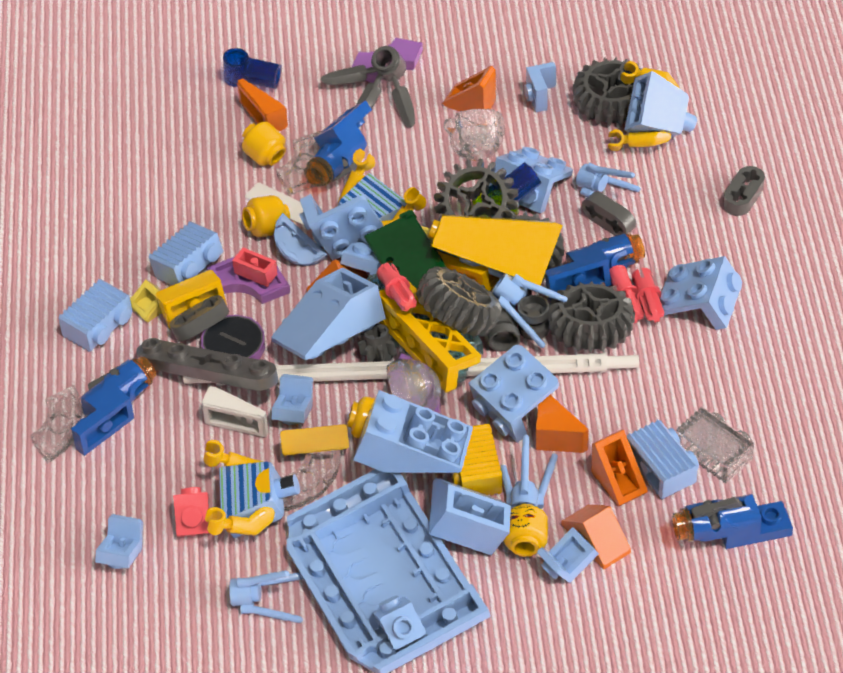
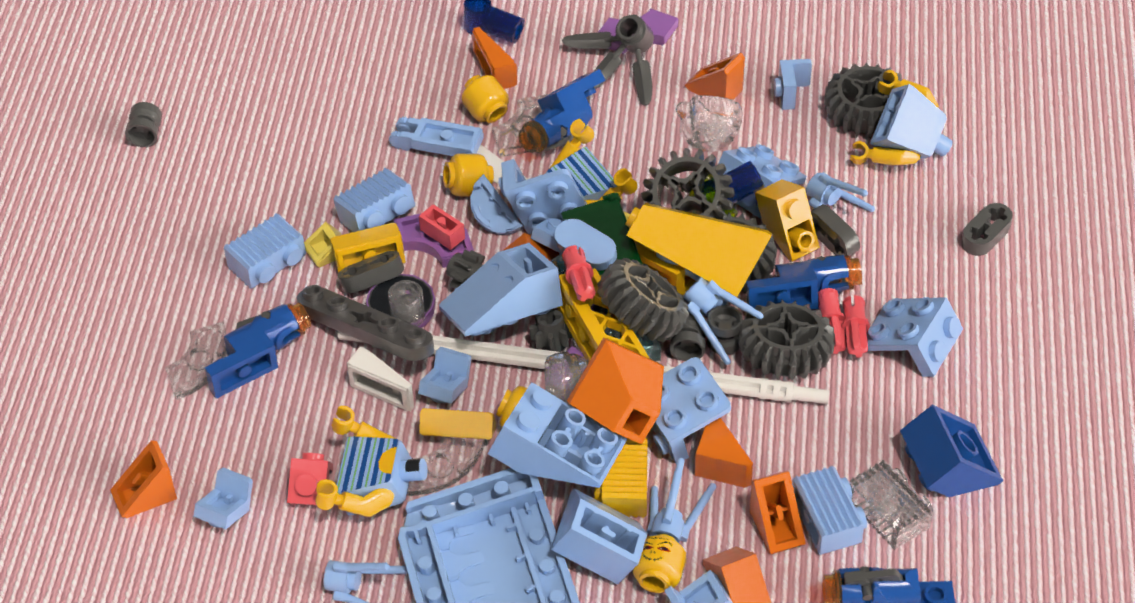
camera: 10 degrees right, 0 degrees up
(42, 540) = (144, 483): none -> orange slope
(226, 185) = (436, 136): none -> light blue hinge
(242, 338) = (407, 302): none -> clear wheel
(284, 300) = (463, 266): none -> dark grey gear
(407, 261) = (598, 247): none -> light blue tile
(459, 384) = (620, 390): none -> orange slope
(565, 203) = (788, 218): none -> yellow slope
(755, 392) = (949, 453): none -> blue slope

